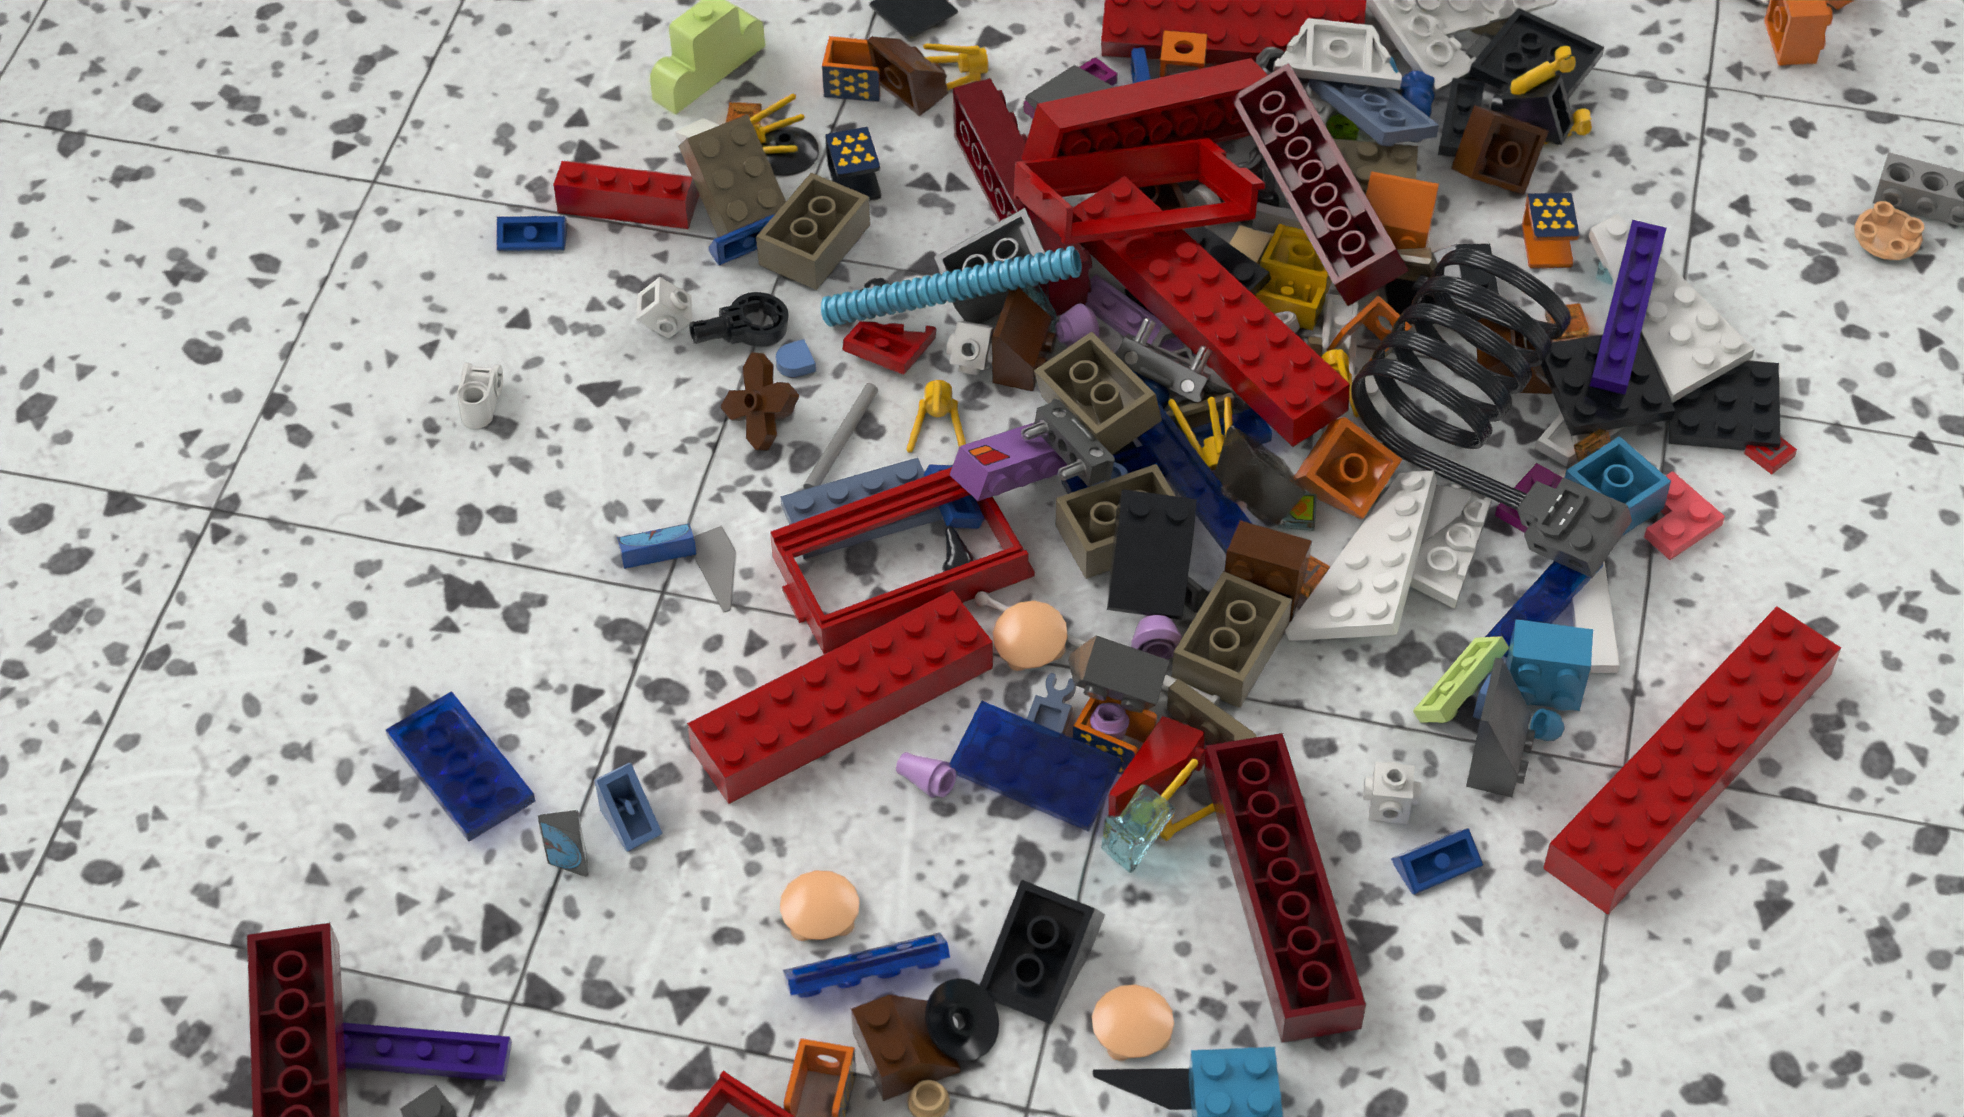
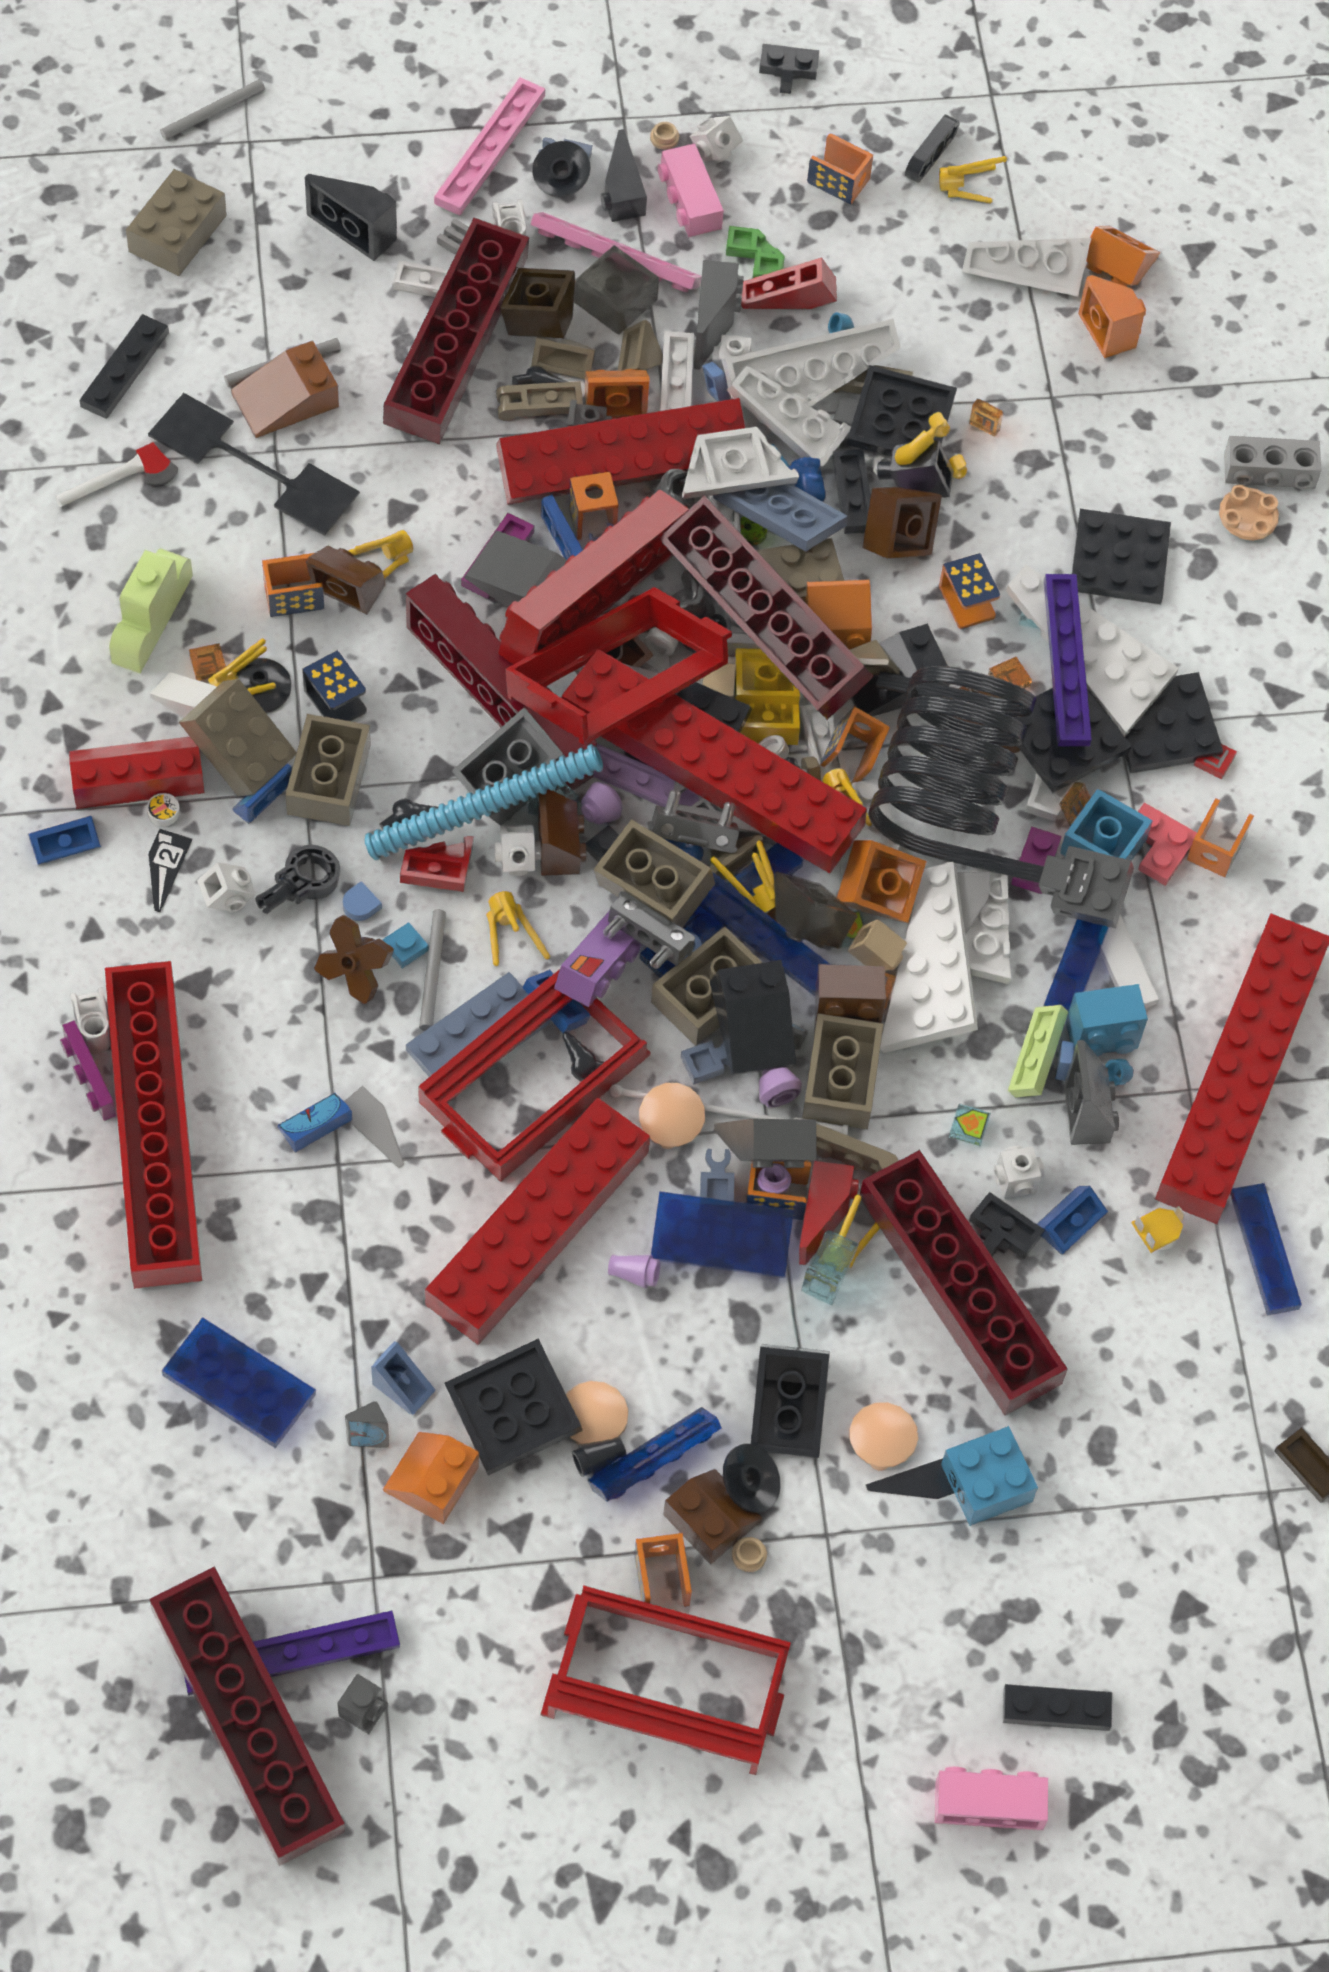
camera: 25 degrees left, 10 degrees up
(450, 438) = (87, 1071): none -> magenta plate
(486, 502) = (152, 1125): none -> red brick
(619, 279) = (164, 862): none -> sticker
(621, 917) = (433, 1474): none -> orange slope
(639, 231) = (163, 809): none -> tile
(733, 870) = (513, 1406): none -> black plate
(803, 947) = (596, 1456): none -> black cone
(823, 408) = (407, 944): none -> dark azure plate
(1086, 594) = (704, 1061): none -> sand blue plate
(1324, 529) = (878, 946): none -> tan brick
(1354, 847) = (1005, 1227): none -> black hinge
(1356, 734) = (969, 1124): none -> tile
(1535, 896) = (1159, 1228): none -> yellow piece
(1628, 84) = (986, 417): none -> clear orange tile
(1655, 954) = (1265, 1249): none -> clear blue plate
(1730, 241) = (1121, 556): none -> black plate
(1747, 544) = (1224, 857): none -> orange piece

